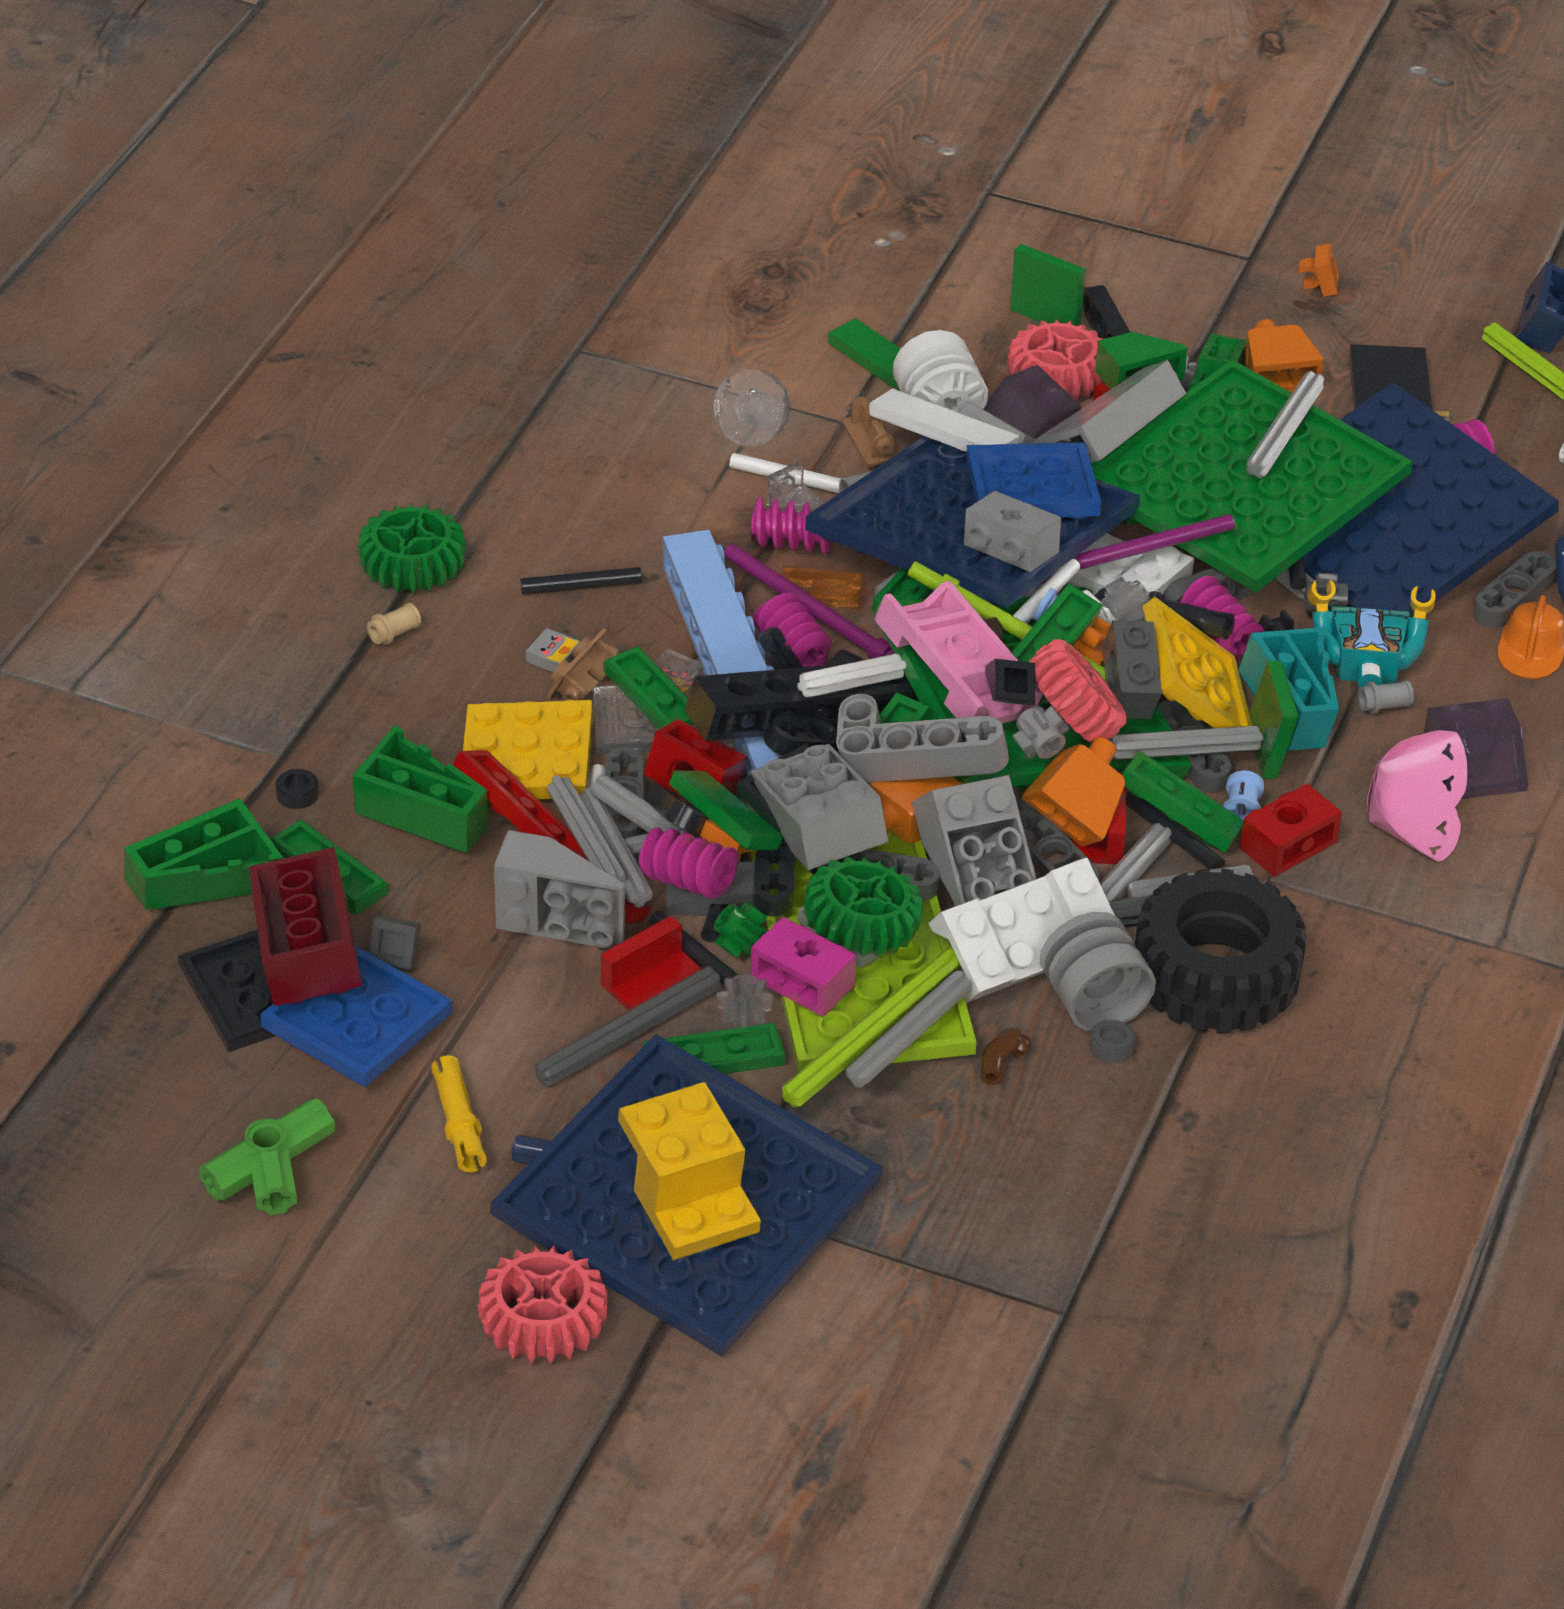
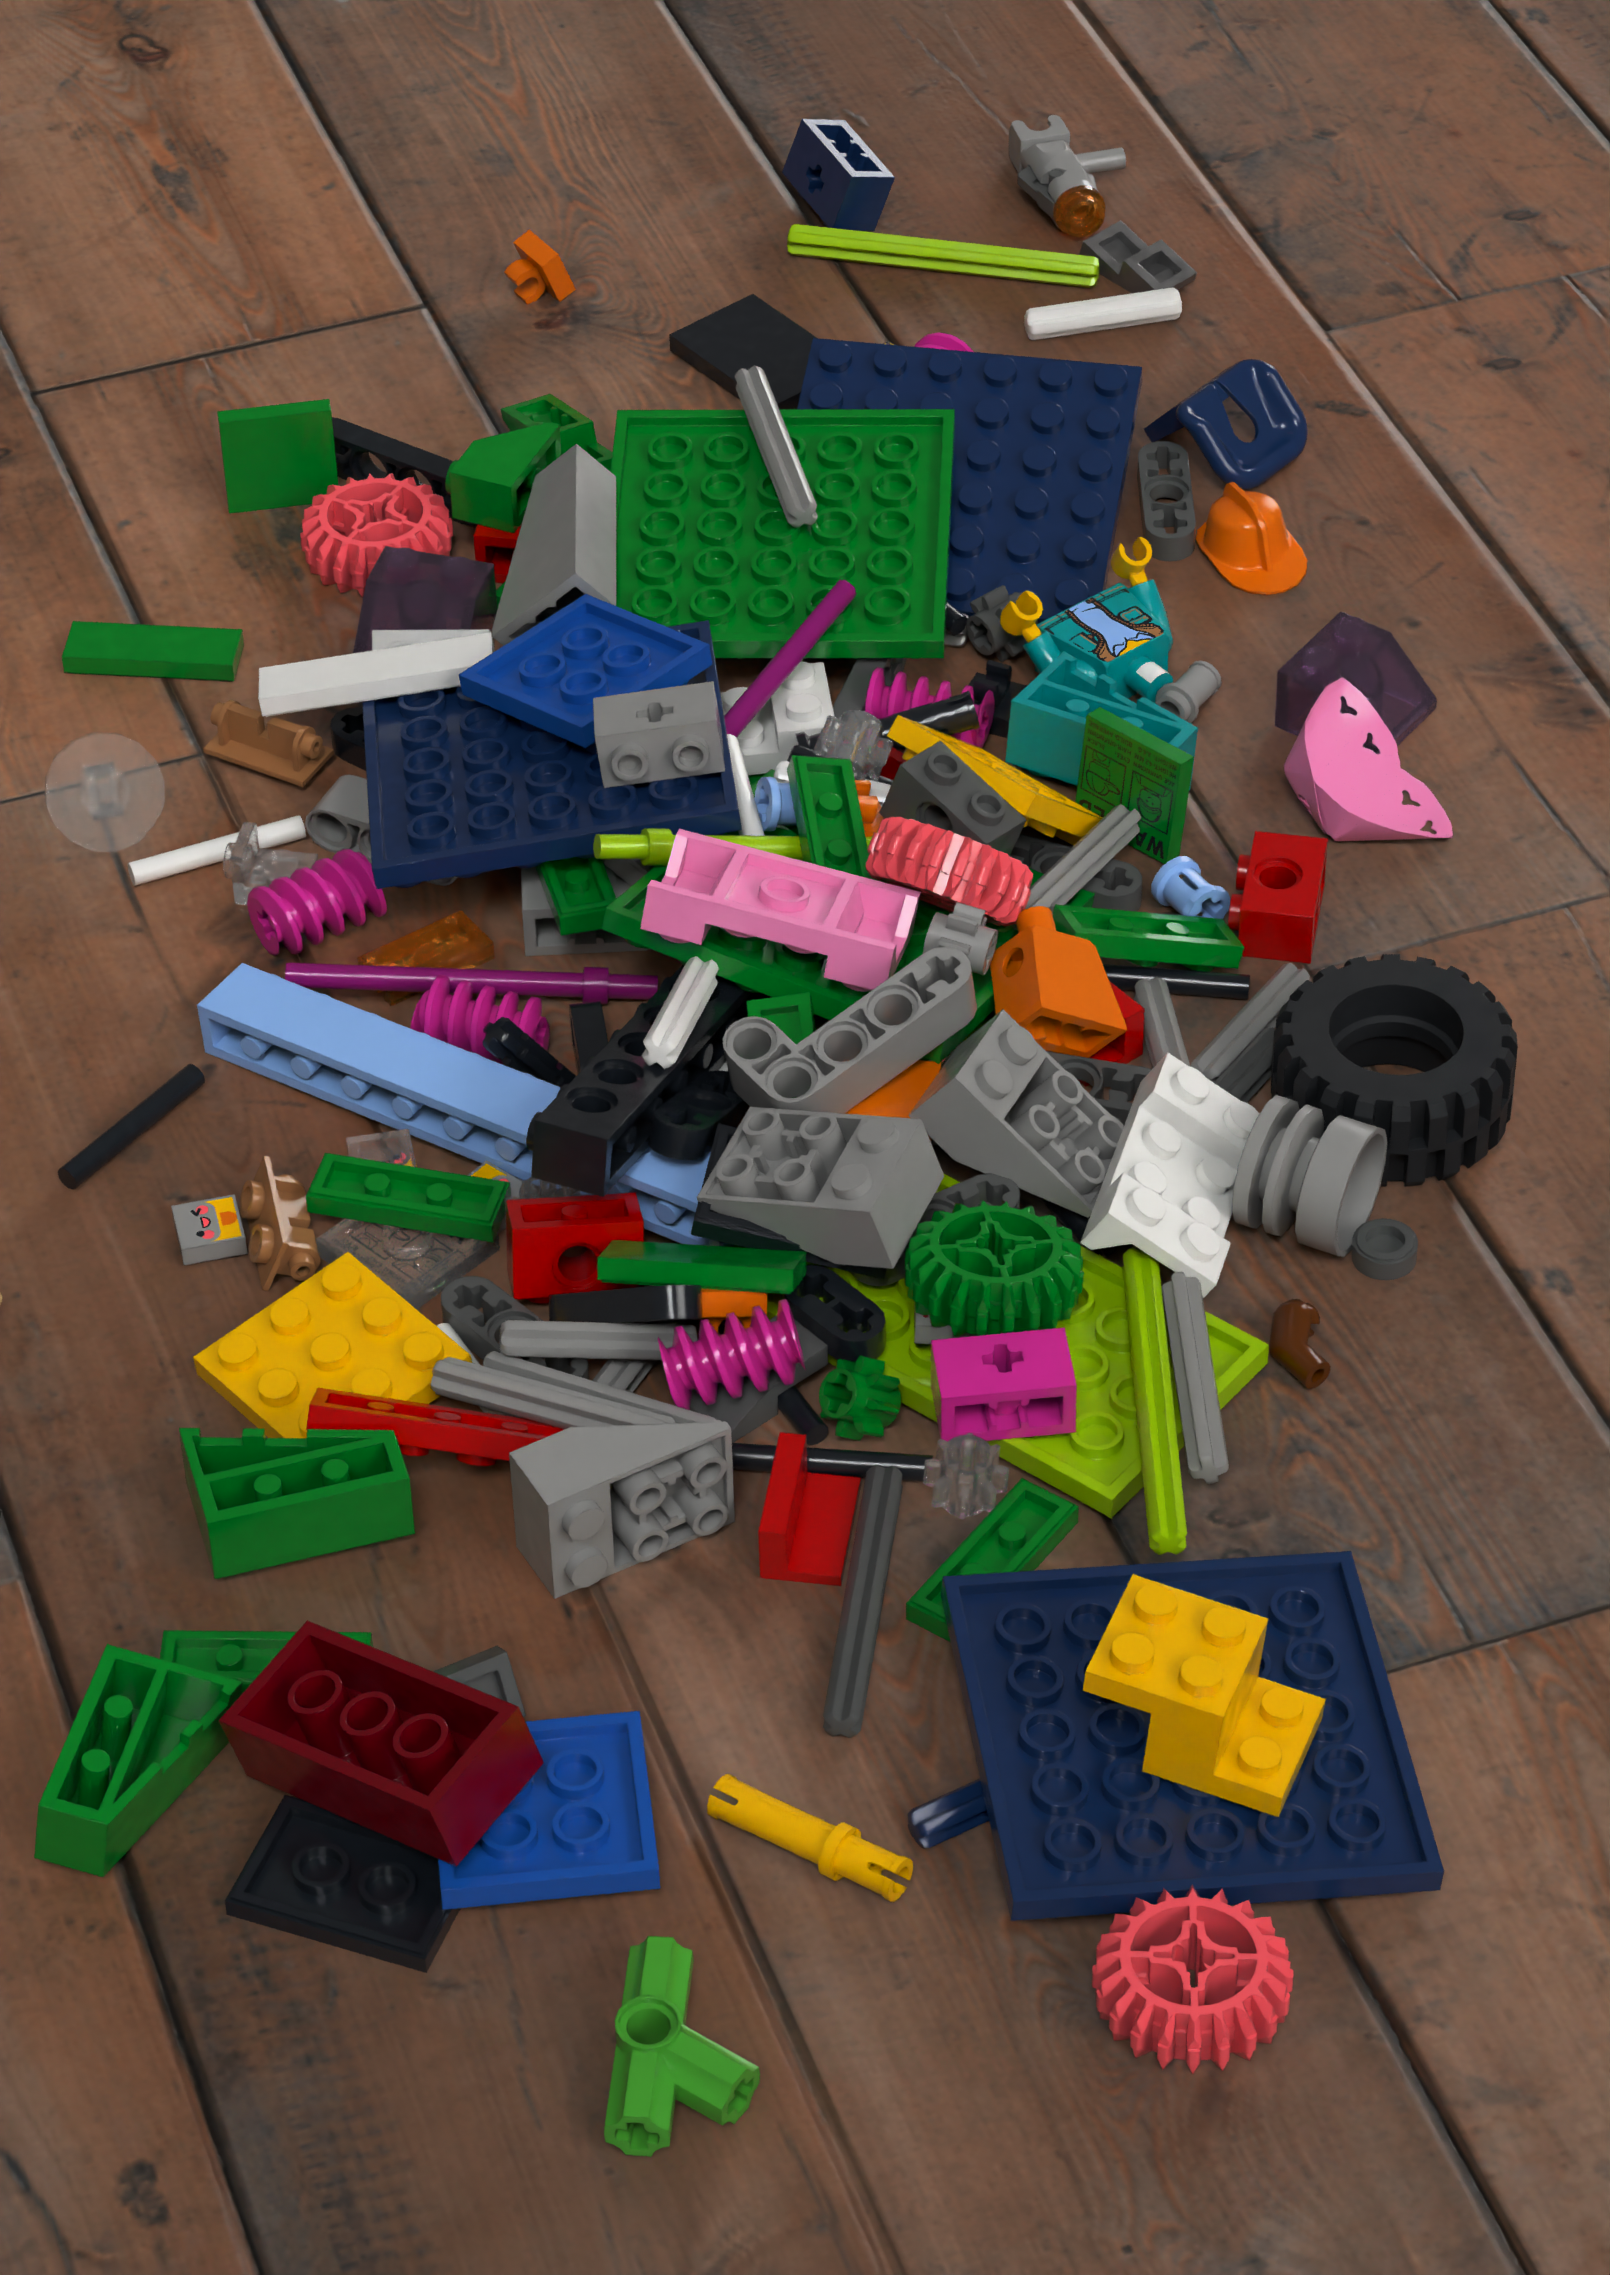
camera: 40 degrees left, 0 degrees up
(297, 788) = (103, 1600): black tile -> none
(940, 371) = (287, 618): white wheel -> none
(1011, 681) = (891, 898): black slope -> none
(1281, 353) = (618, 379): orange torso -> none

